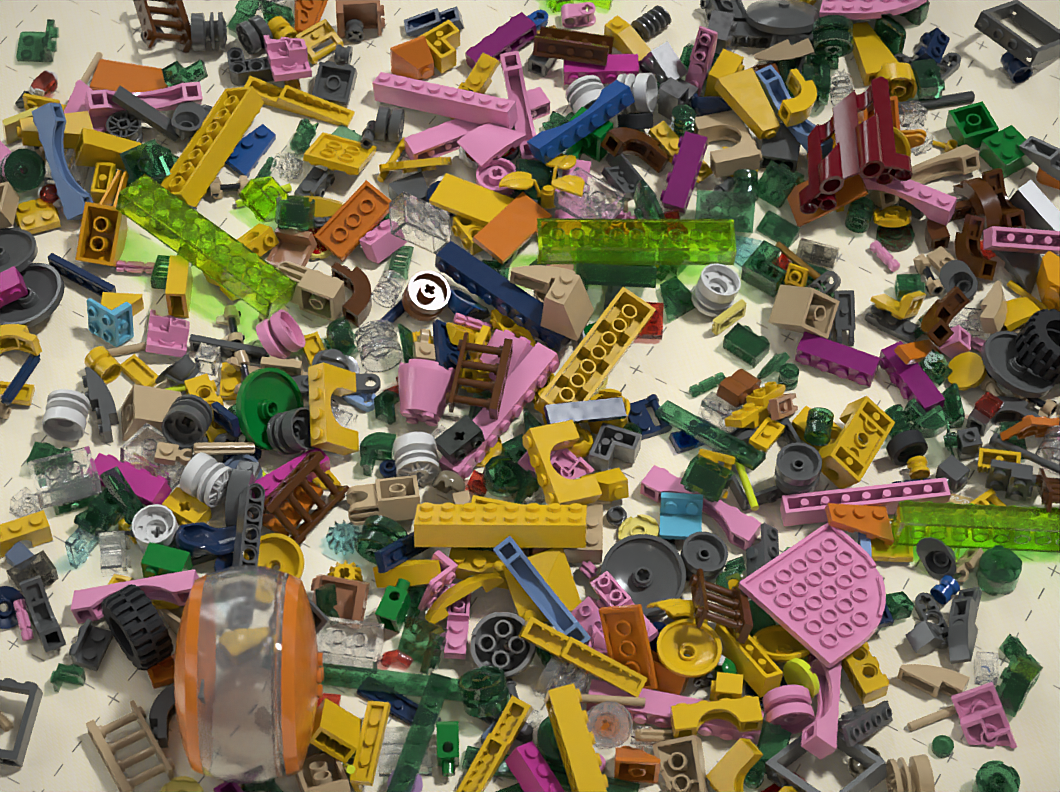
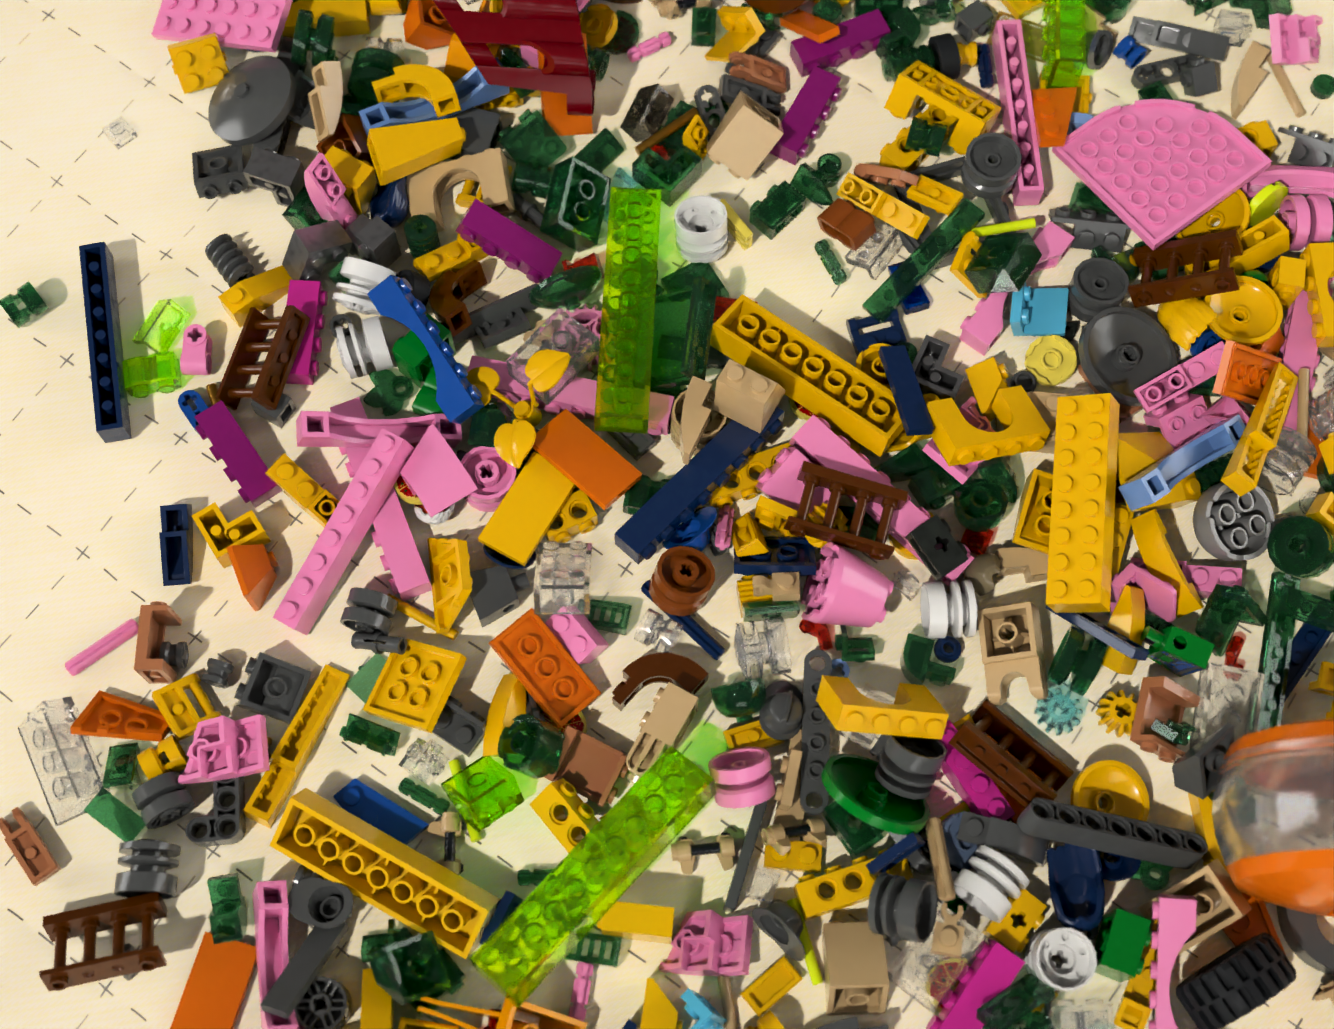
camera: 85 degrees left, 15 degrees up
(867, 322) = (758, 71): none -> nougat hinge

